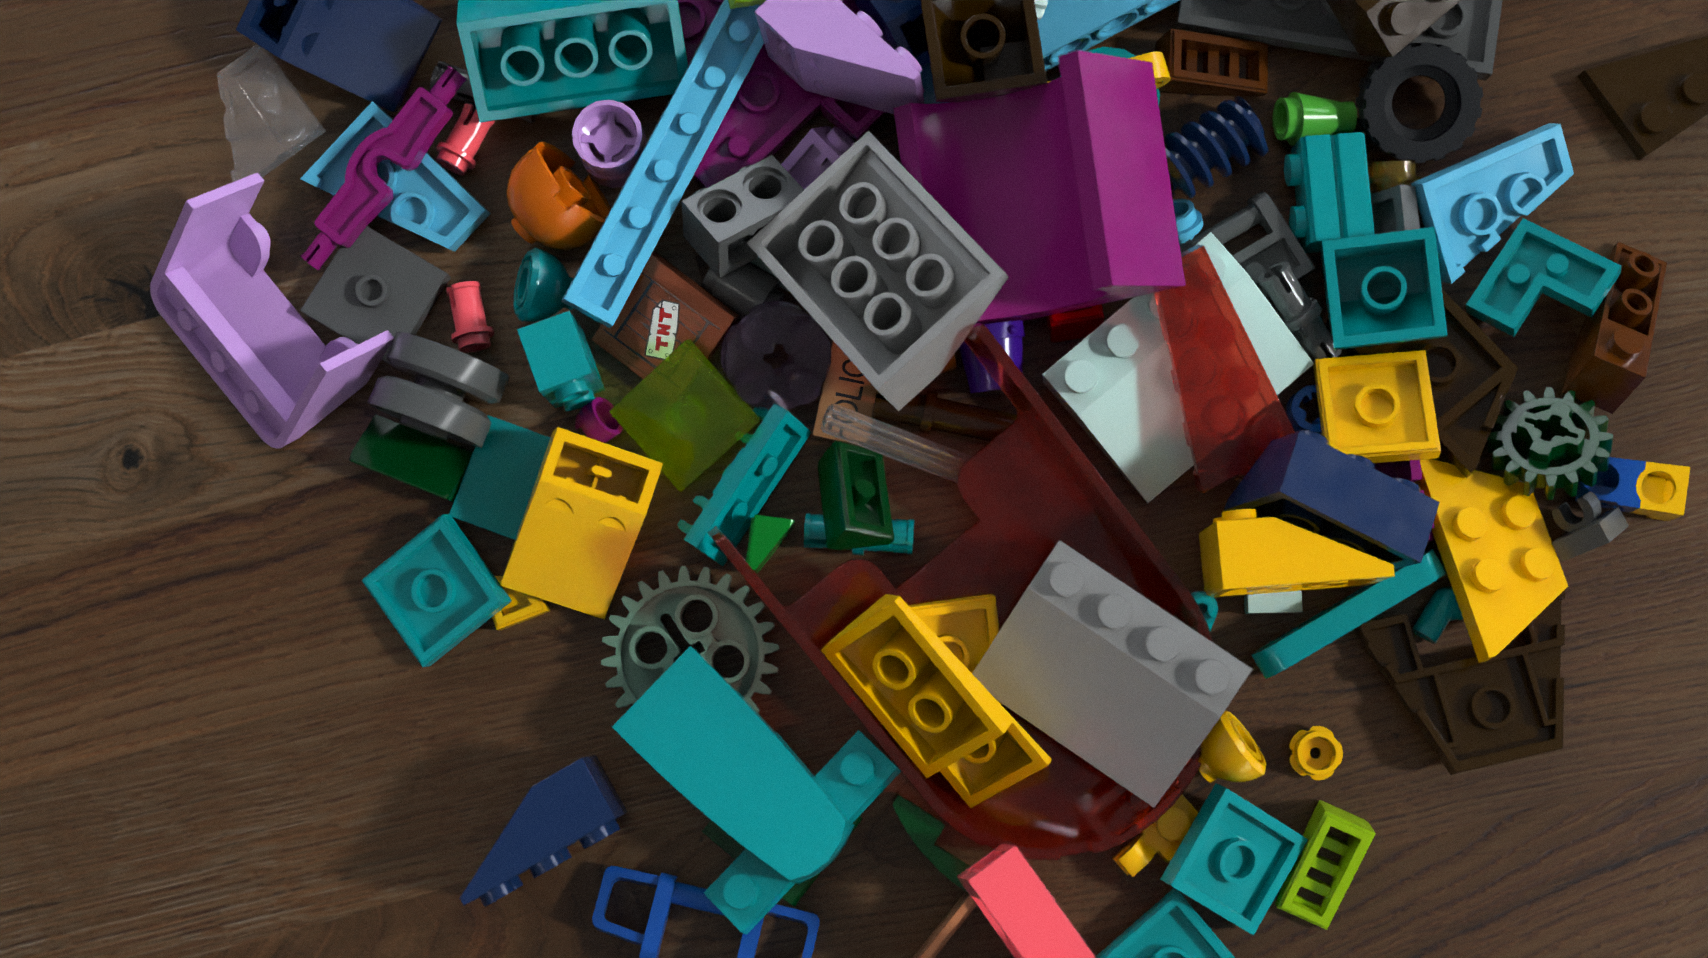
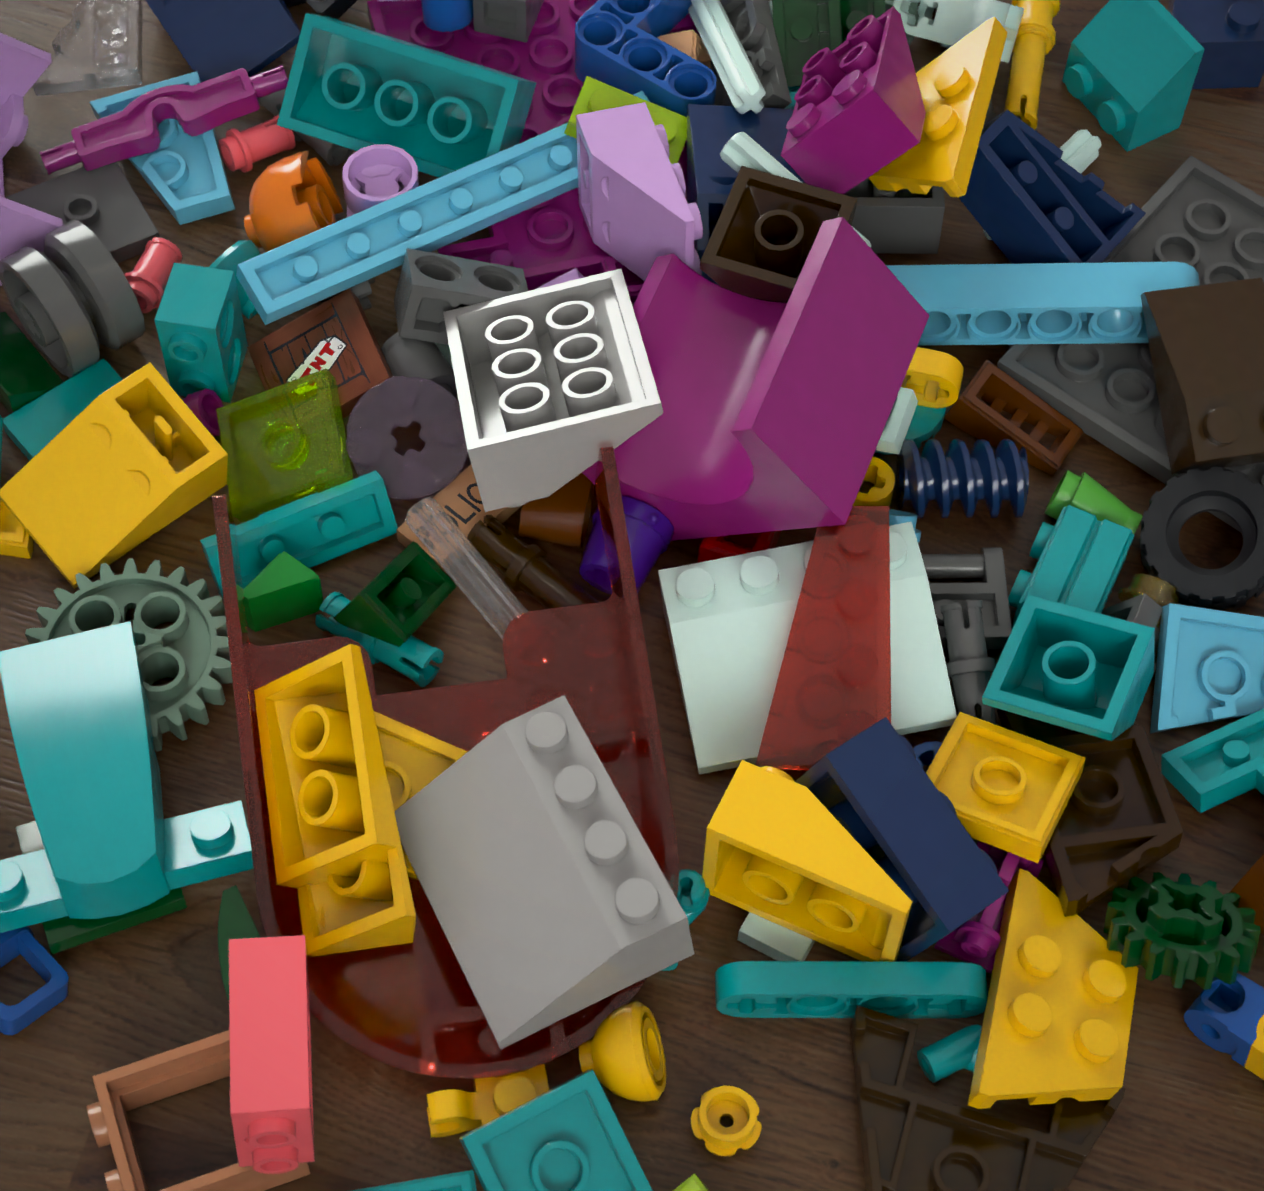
camera: 30 degrees right, 25 degrees down
(1587, 531) = (1179, 1046): dark grey tile -> none

